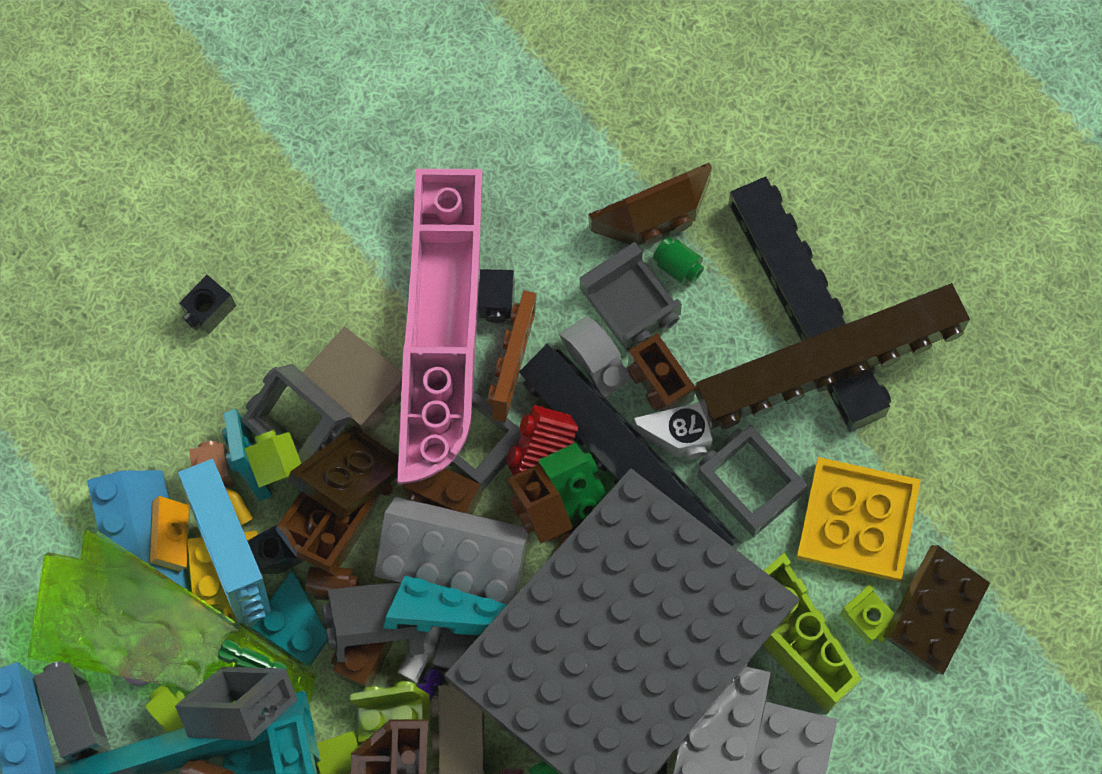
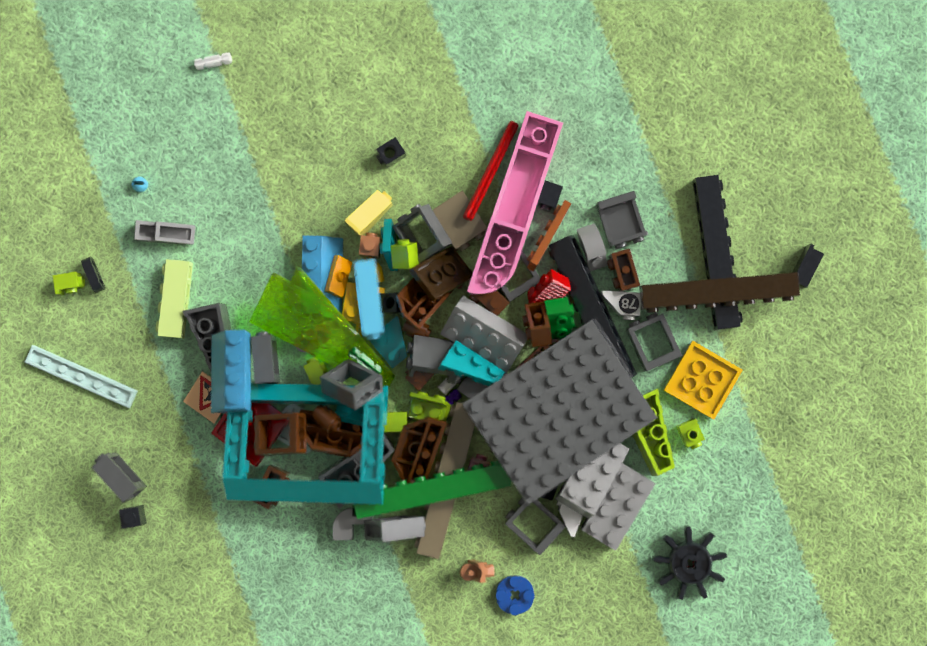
camera: 15 degrees right, 15 degrees up
(194, 412) = (369, 213): none -> light yellow slope
(383, 283) = (490, 171): none -> red axle
(655, 210) = (651, 174): reddish brown wedge -> none
(678, 261) = (654, 207): green brick -> none
(936, 609) = (726, 441): dark brown plate -> none
(967, 275) = (807, 264): none -> black panel

